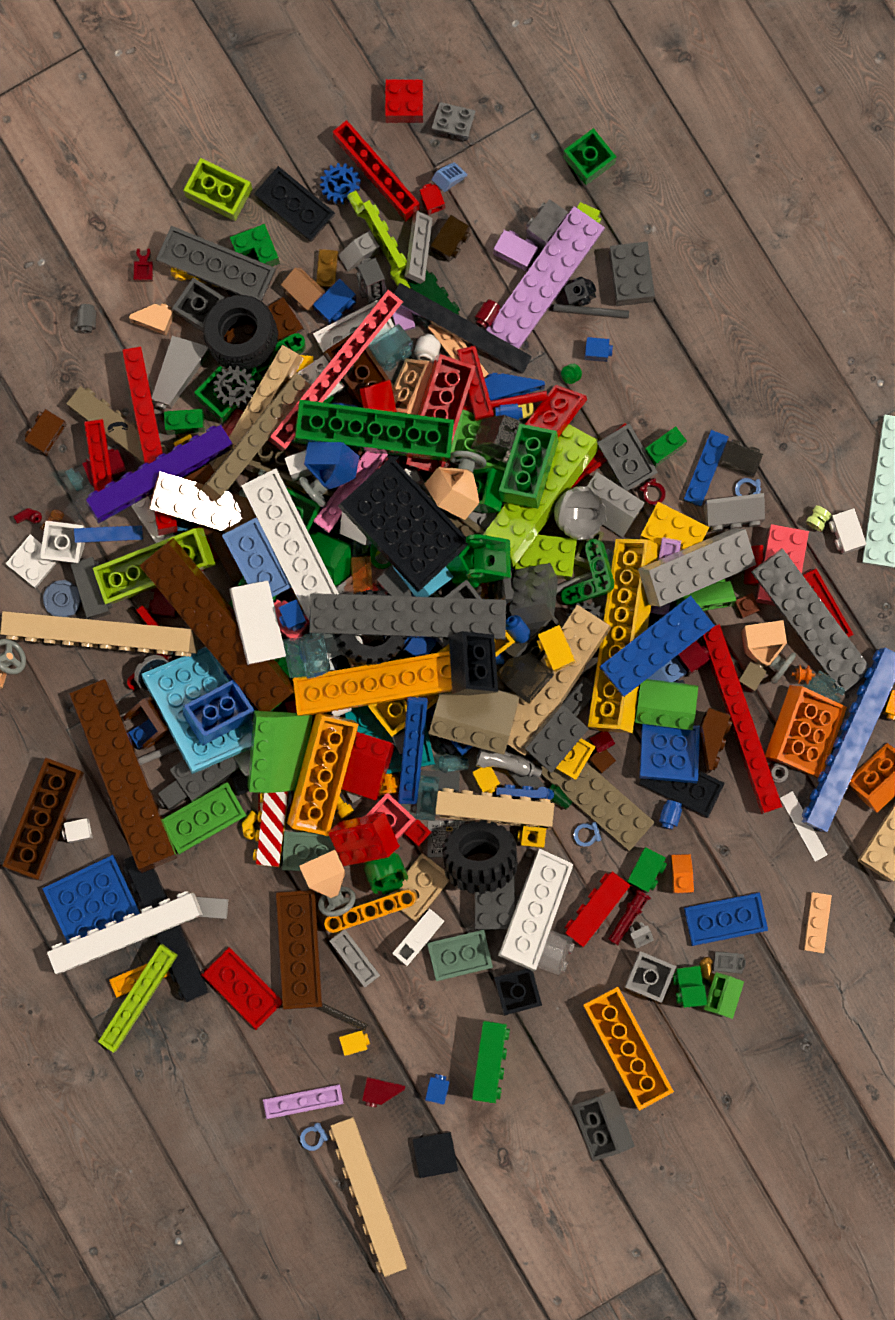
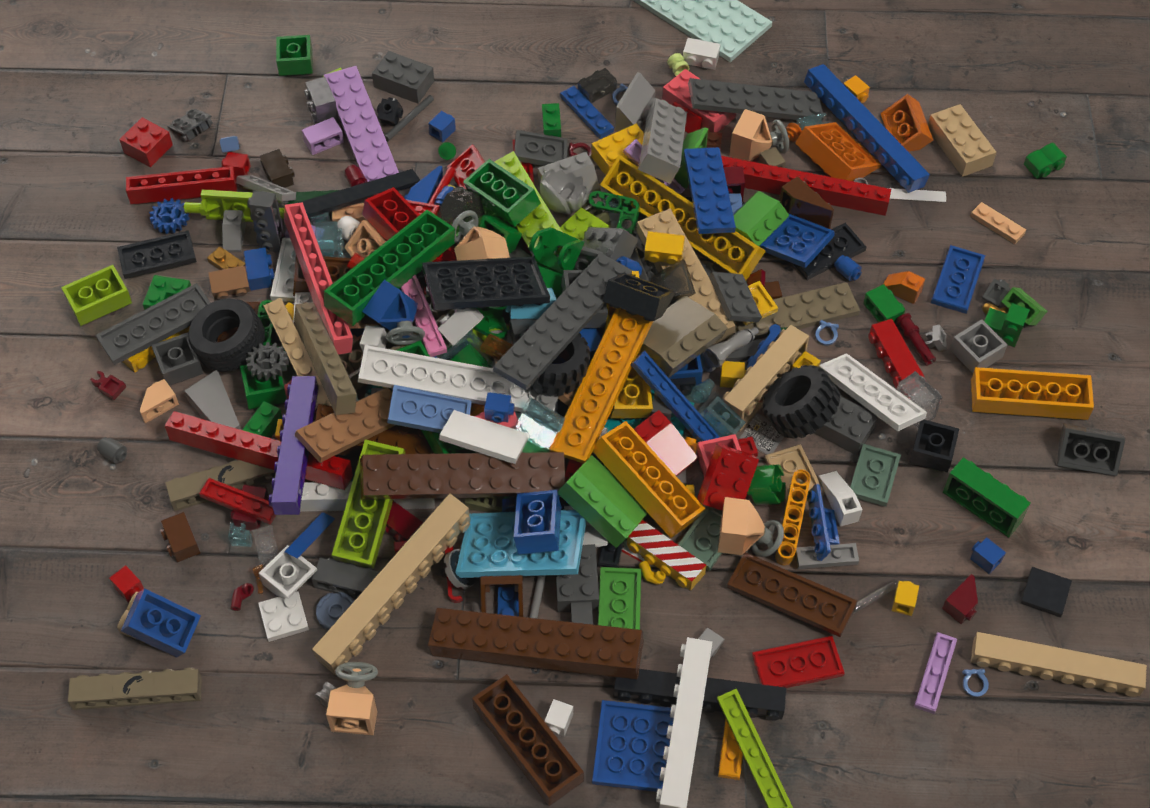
camera: 60 degrees left, 25 degrees down
(380, 940) = (823, 523): none -> blue bracket

